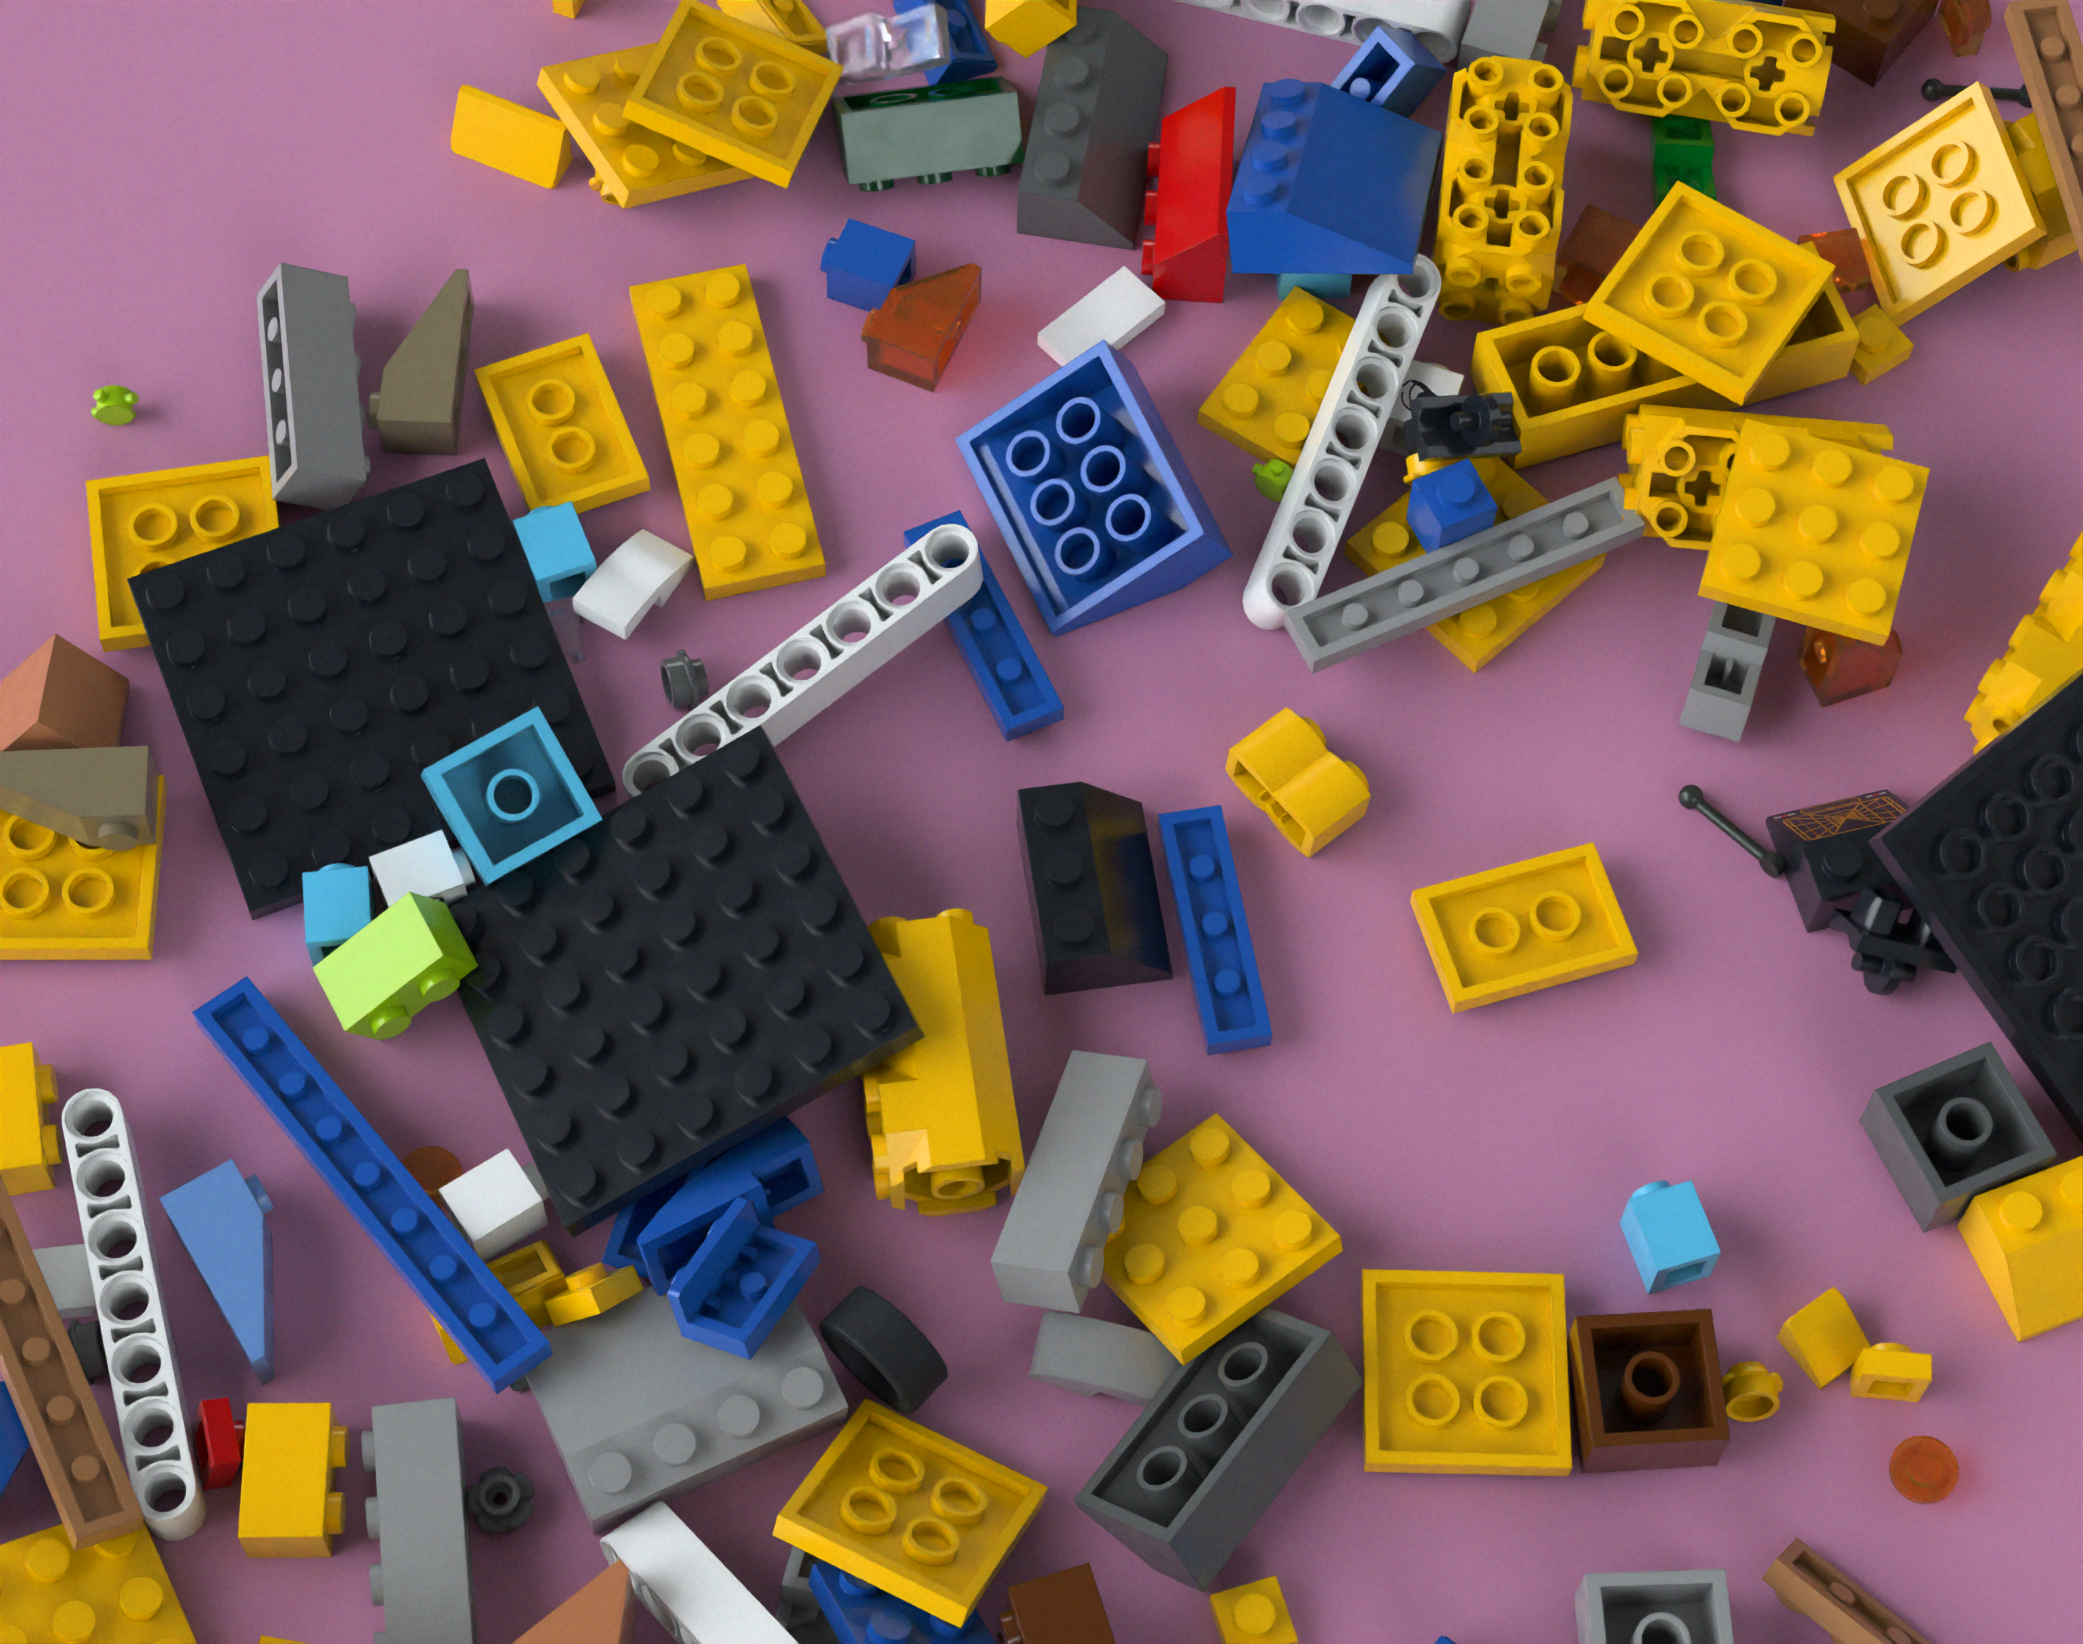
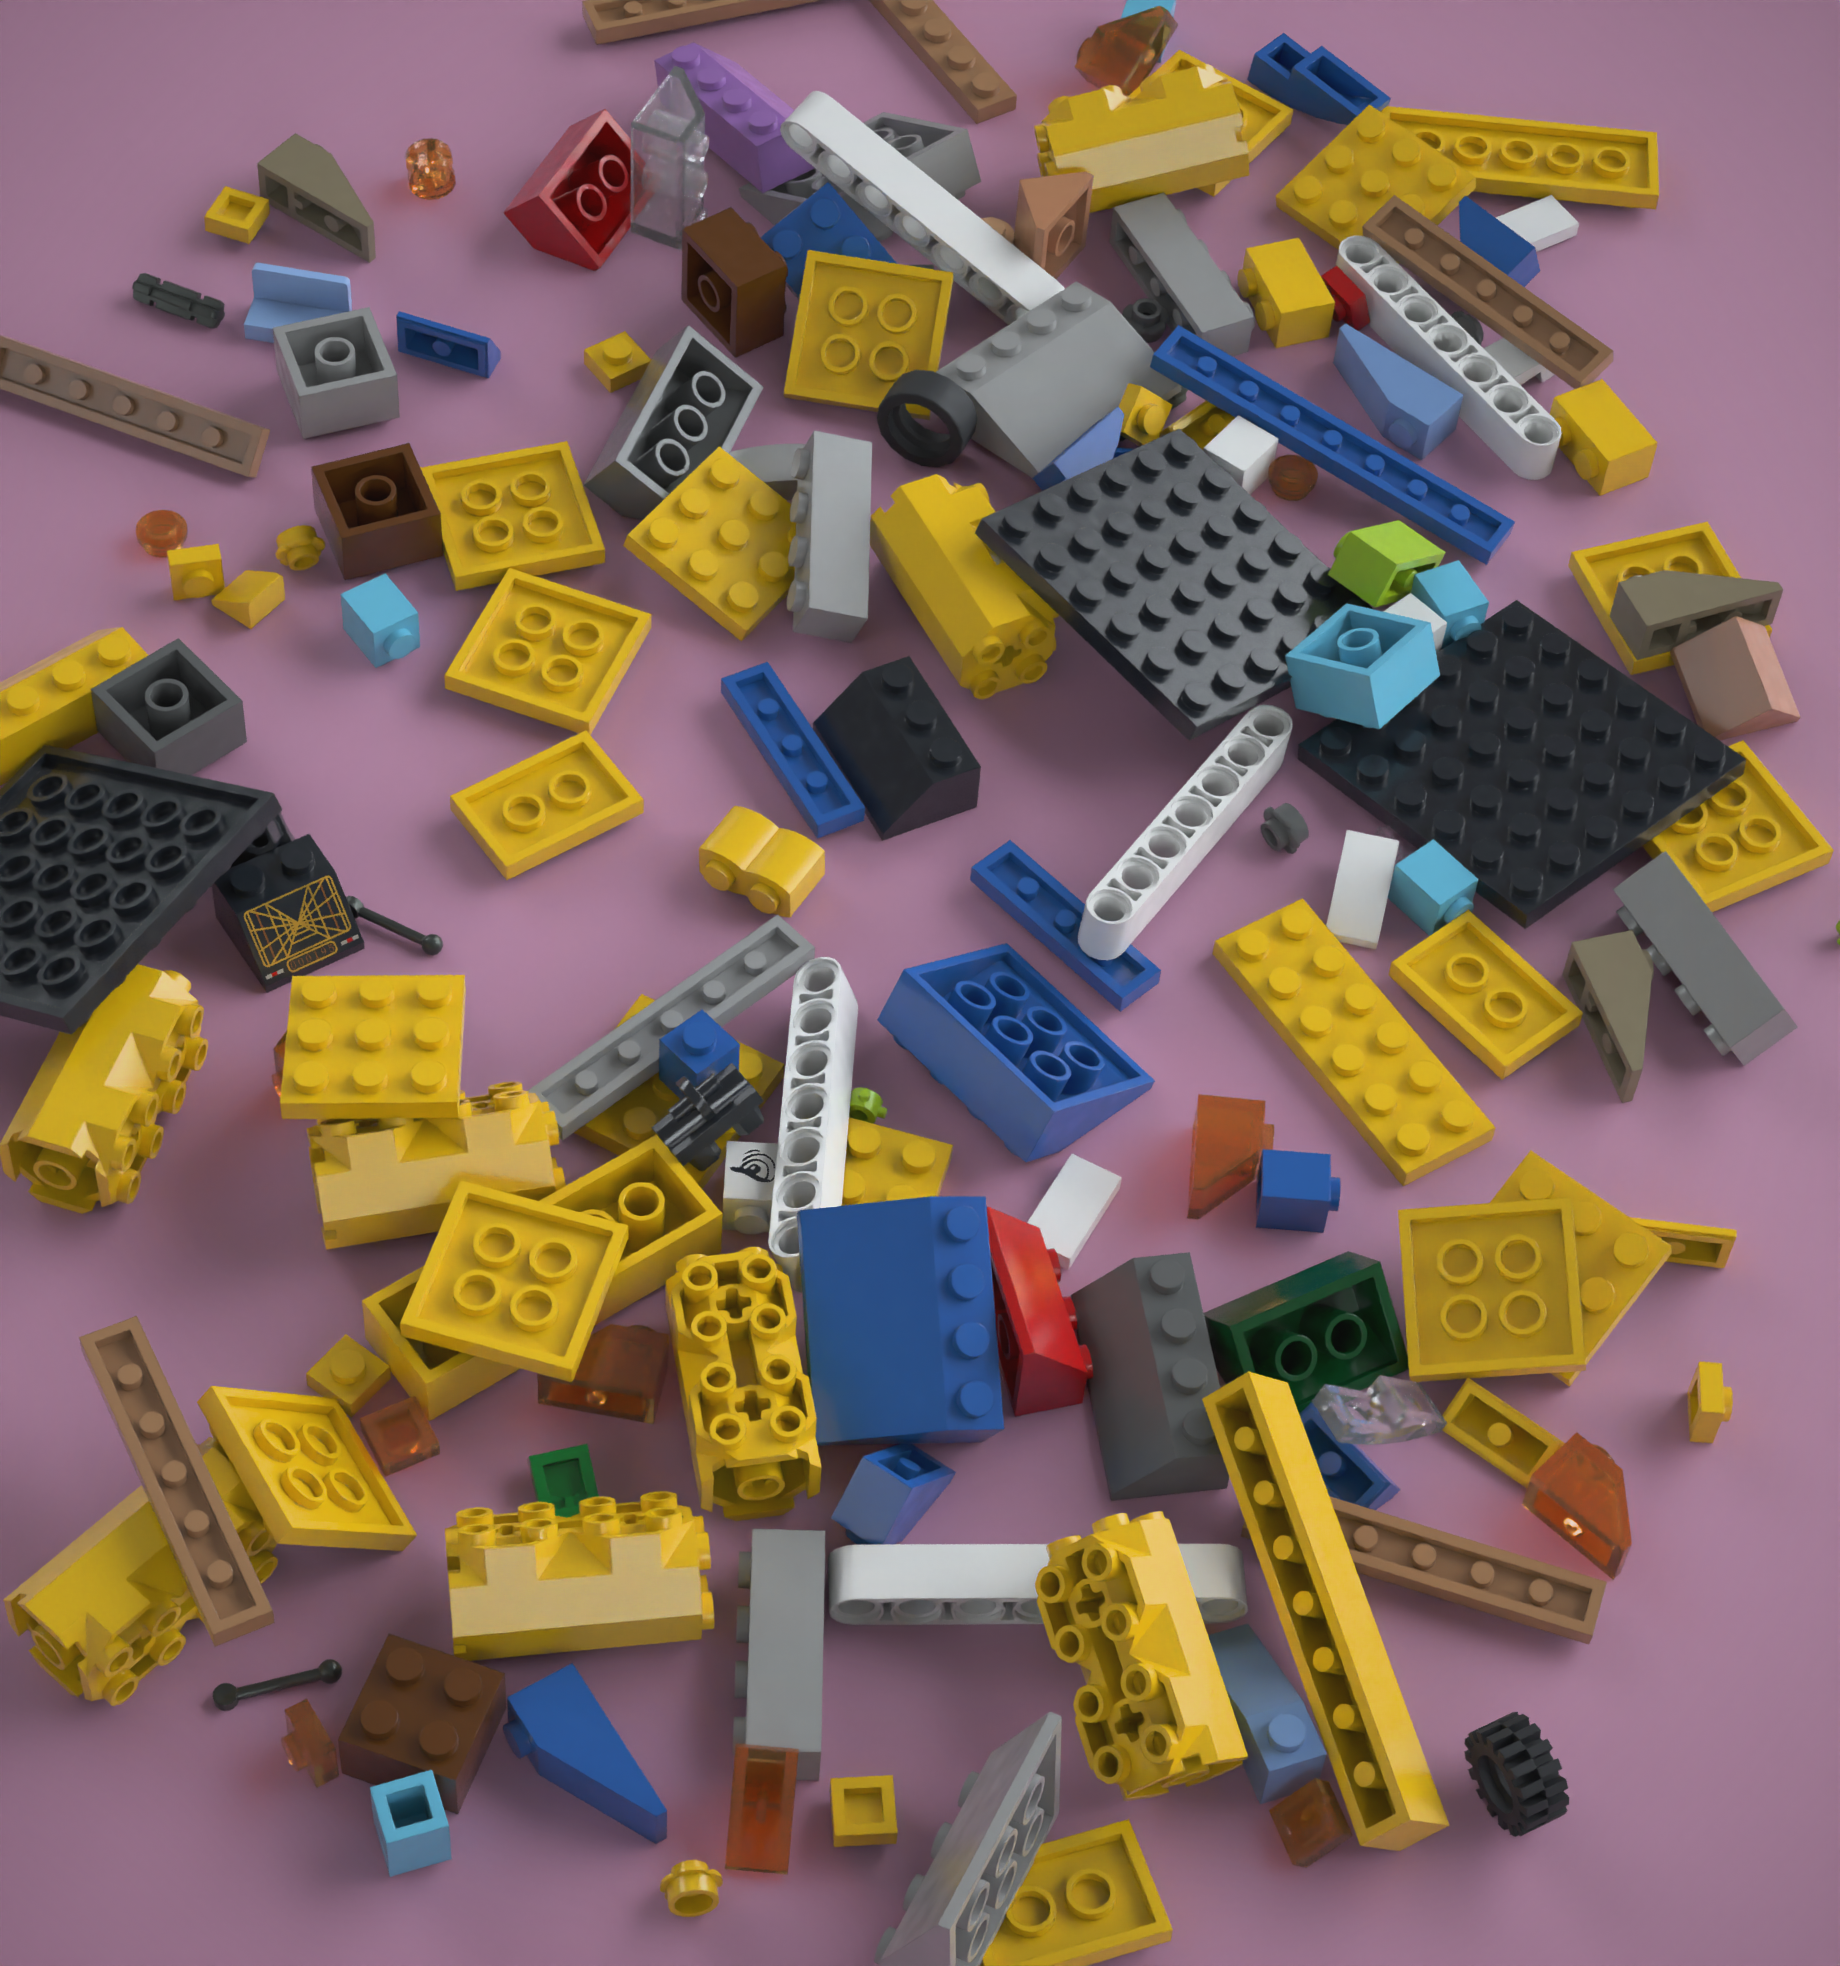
camera: 160 degrees right, 10 degrees down
(740, 1281) = (1039, 408): blue bracket -> none
(1468, 1145) = (548, 651): none -> yellow plate

